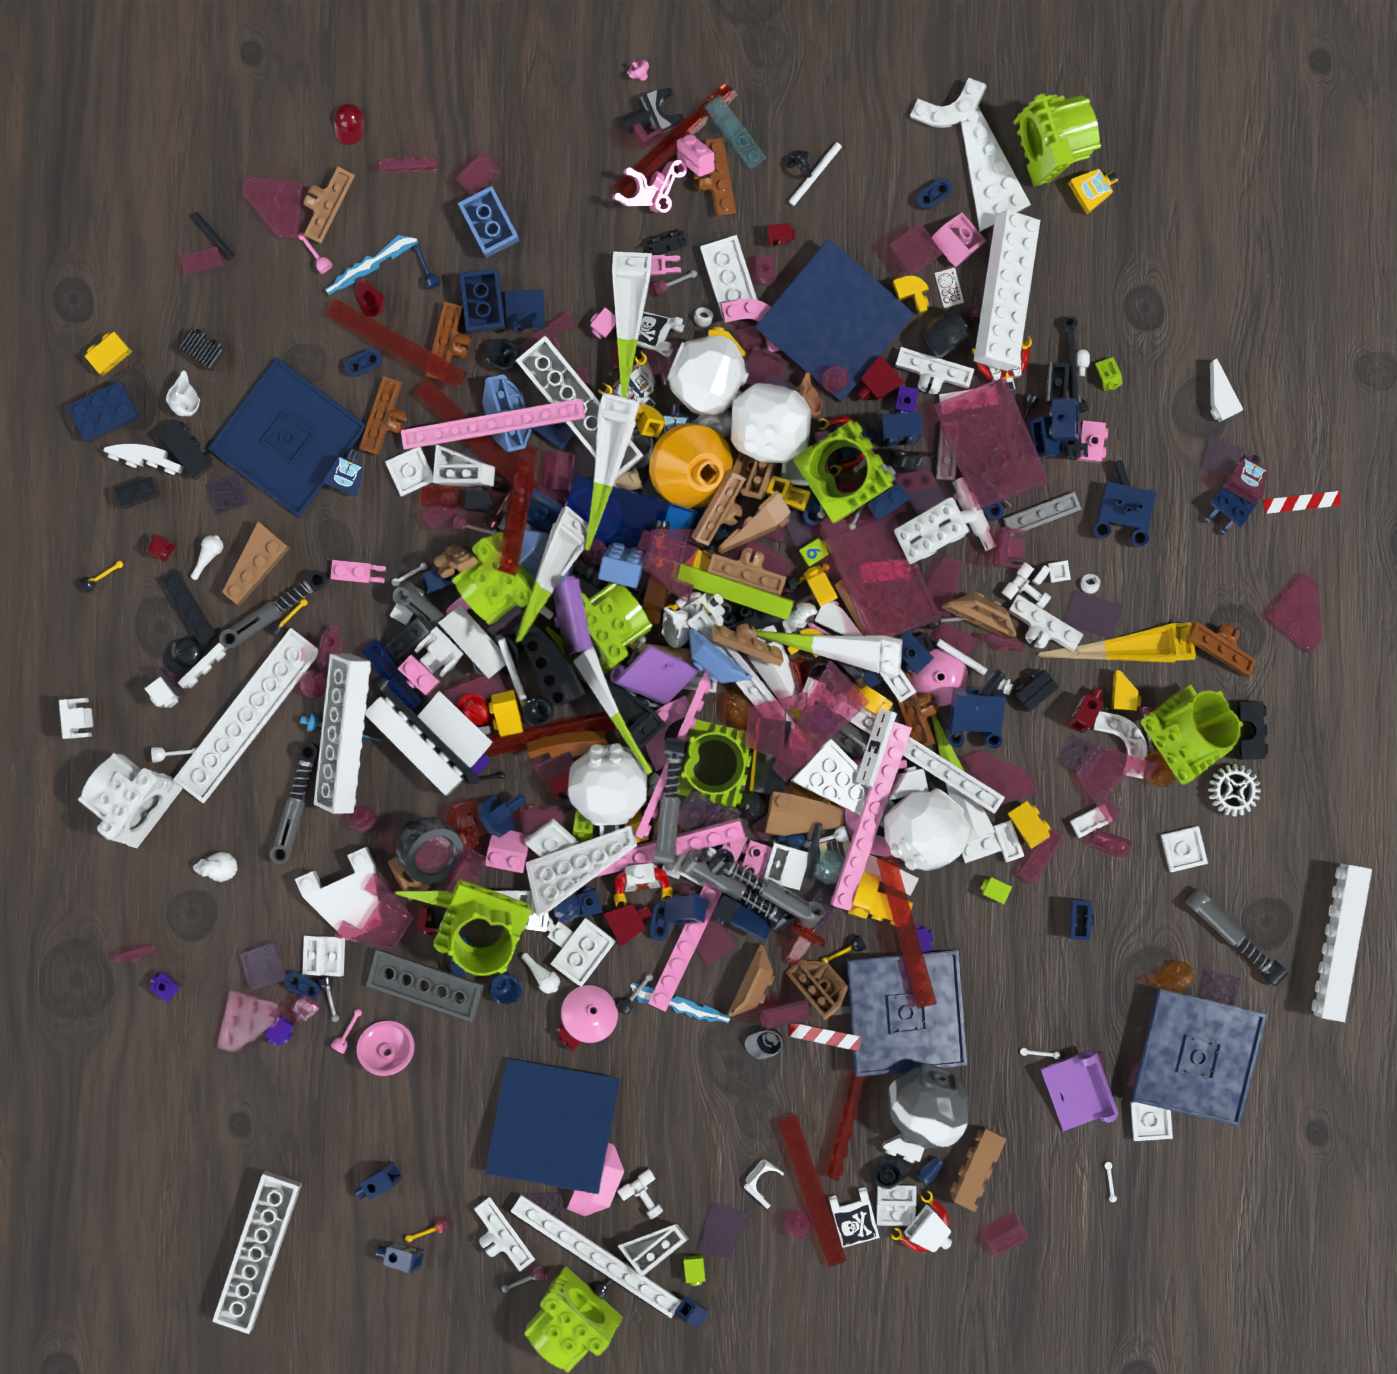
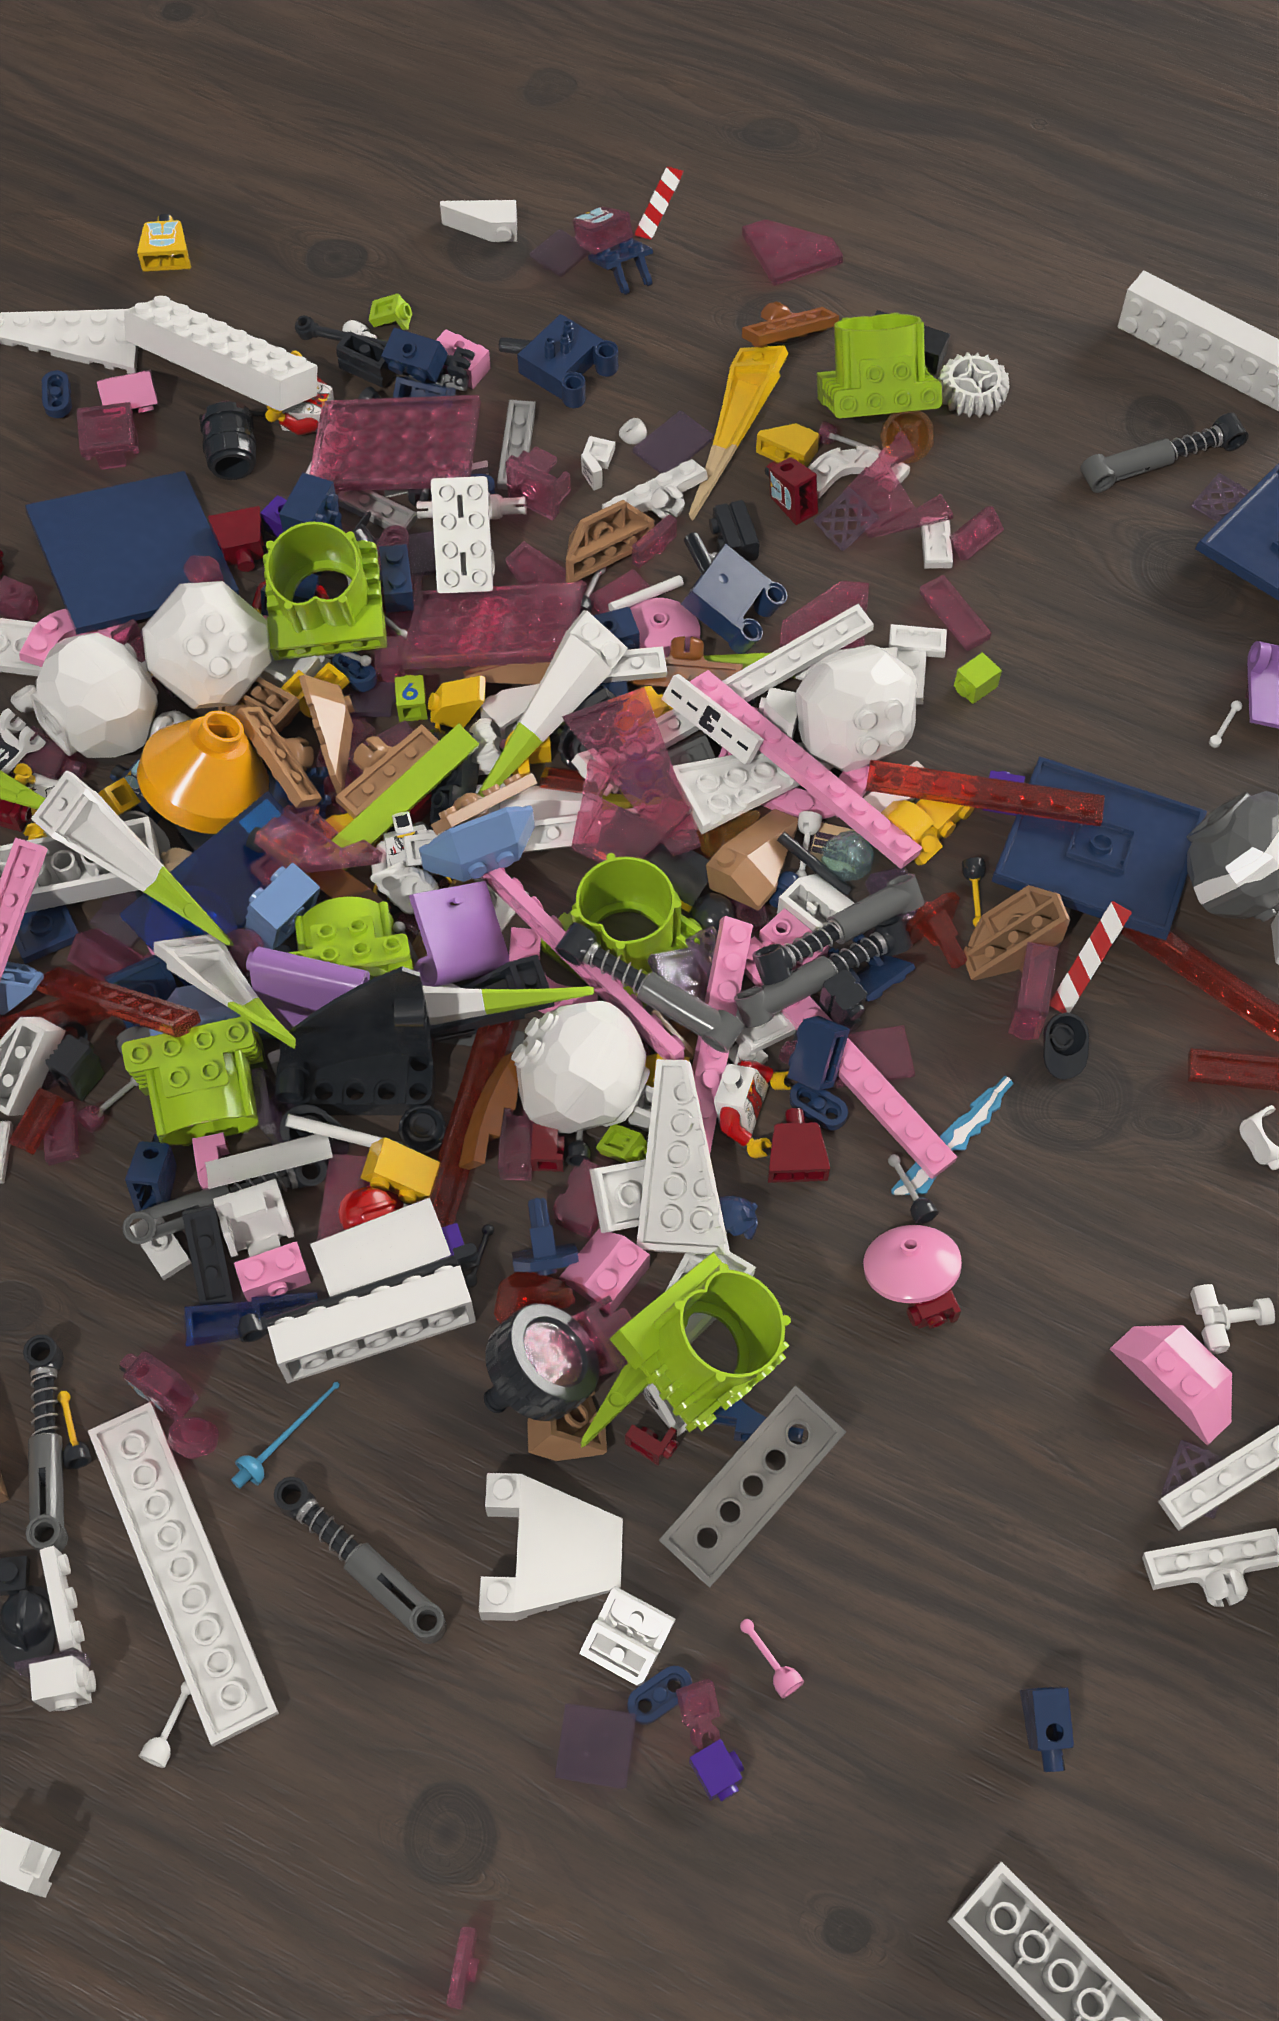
camera: 65 degrees left, 25 degrees down
(128, 799) = (192, 1826): white hose -> none
(165, 986) = (545, 1940): dark purple brick -> none
(218, 866) = (393, 1742): white hair -> none
(246, 1020) = (671, 1820): clear pink plate -> none
(326, 983) = (676, 1654): hinge -> none
(342, 733) = (289, 1414): white brick -> none
(355, 571) = (68, 1296): bright pink hinge -> none
(361, 819) = (441, 1464): clear pink plate -> none
(380, 1039) = (812, 1592): bright pink dish -> none
(385, 923) = (623, 1504): clear pink wing -> none
(396, 582) = (119, 1247): white hinge -> none
(401, 1257) = (1203, 1736): dark blue torso -> none
(442, 1226) = (1163, 1657): hinge -> none
(453, 558) = (131, 1137): medium nougat plate -> none
(492, 520) = (115, 1070): black hinge -> none
(505, 988) = (815, 1366): dark blue hair -> none
(547, 981) = (833, 1302): white piece -> none
(552, 1126) = (1068, 1396): dark blue tile -> none
(558, 933) = (768, 1256): white plate -> none
(583, 952) = (813, 1233): white plate -> none
(590, 901) = (742, 1183): dark blue brick -> none
(737, 707) = (563, 871): clear orange hair -> none
(754, 984) = (967, 1020): medium nougat wedge -> none
(912, 287) = (153, 456): yellow brick -> none
(933, 370) = (267, 478): white plate -> none
(949, 287) = (177, 429): white sticker -> none
(1021, 583) = (591, 496): white bar -> none
(1029, 824) = (908, 602): yellow brick -> none
(1056, 134) = (56, 256): lime hose -> none
(1080, 919) = (1063, 599): dark blue brick -> none
(1175, 977) = (1187, 528): clear orange hair -> none
(1184, 849) = (1022, 466): white tile -> none

